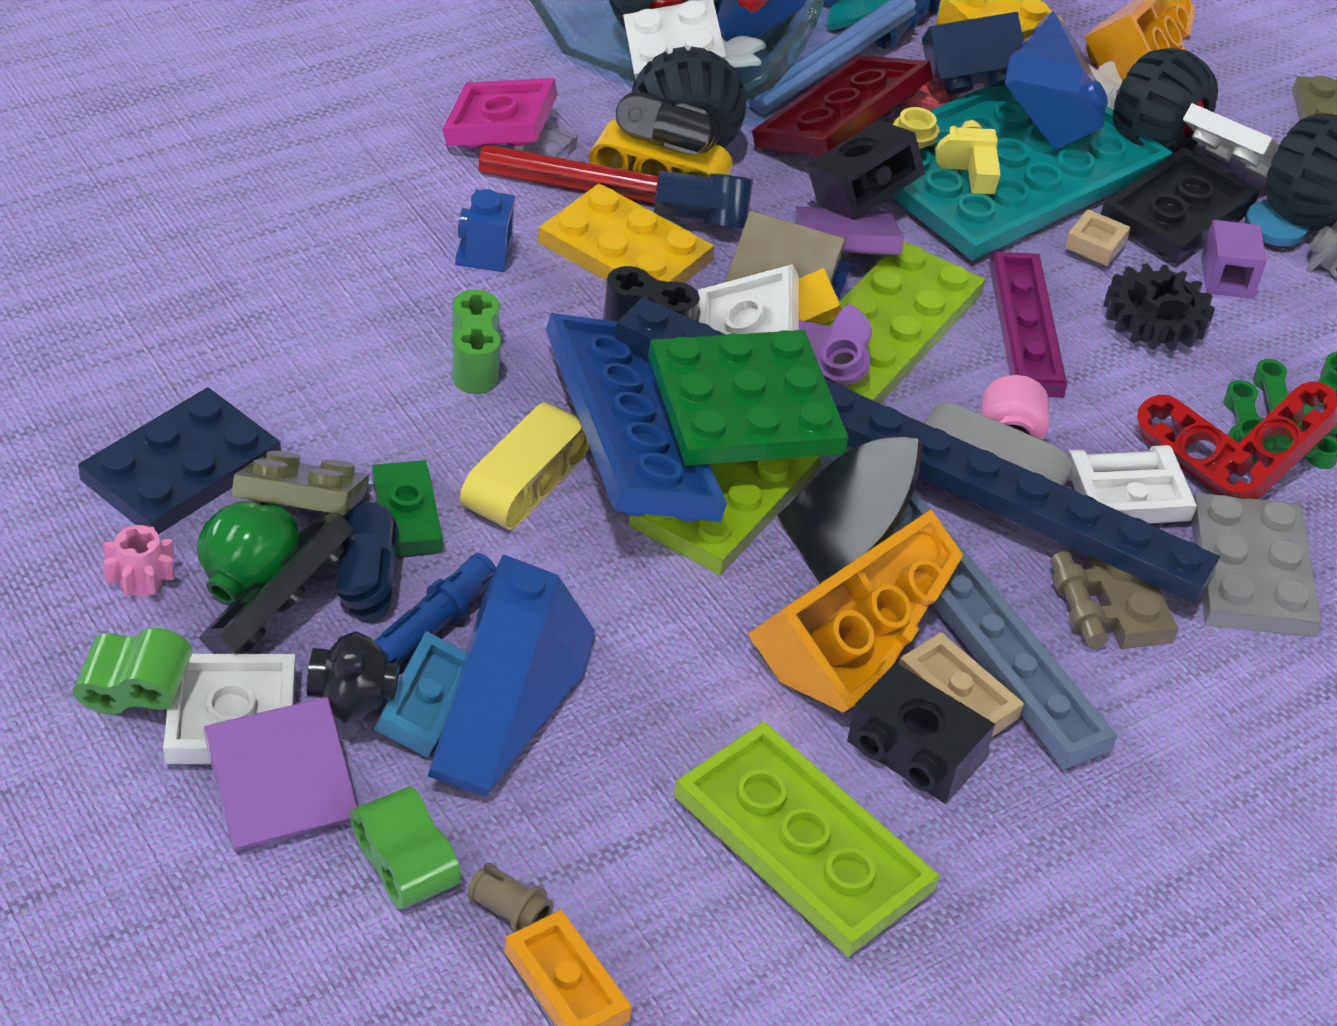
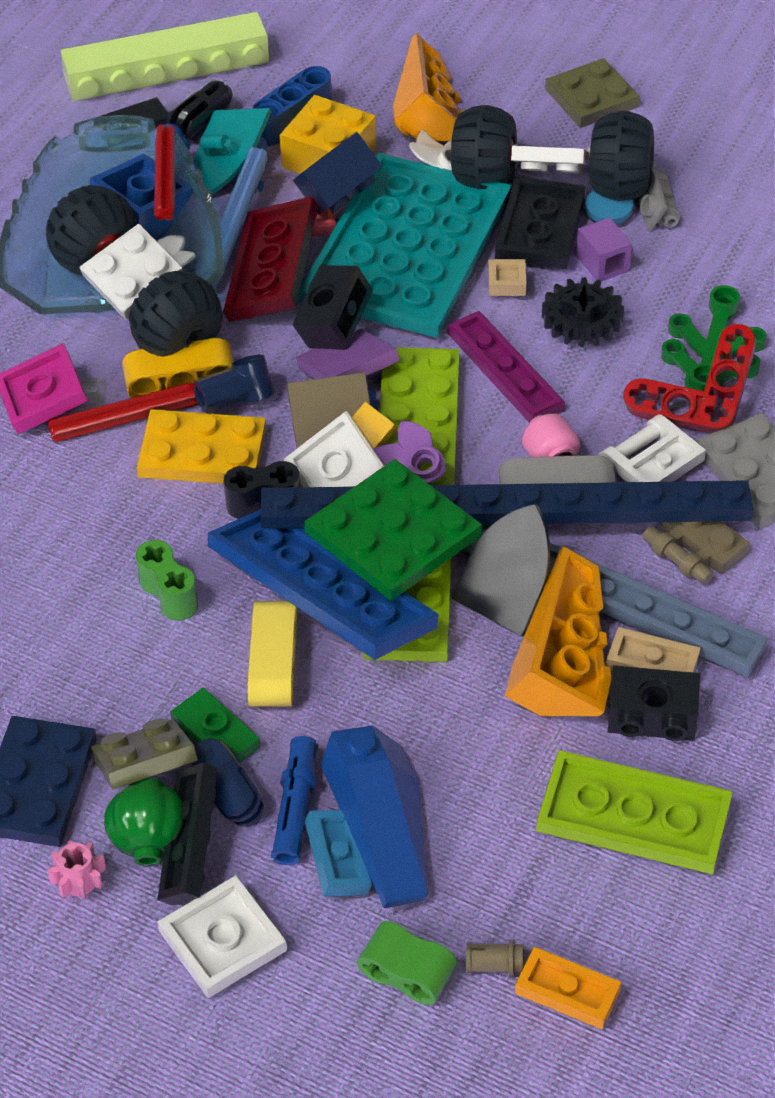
camera: 25 degrees left, 5 degrees up
(133, 671) = (145, 949): bright green axle -> none
(280, 773) = (295, 961): medium lavender tile -> none
(352, 676) = (295, 870): black piece -> none
(486, 231) = (107, 491): blue brick -> none
(673, 127) = (176, 343): black arm -> none
(922, 123) = (338, 252): light yellow plate -> none
(974, 151) = (394, 254): light yellow piece -> none
(1056, 84) = (413, 173): blue wedge -> none

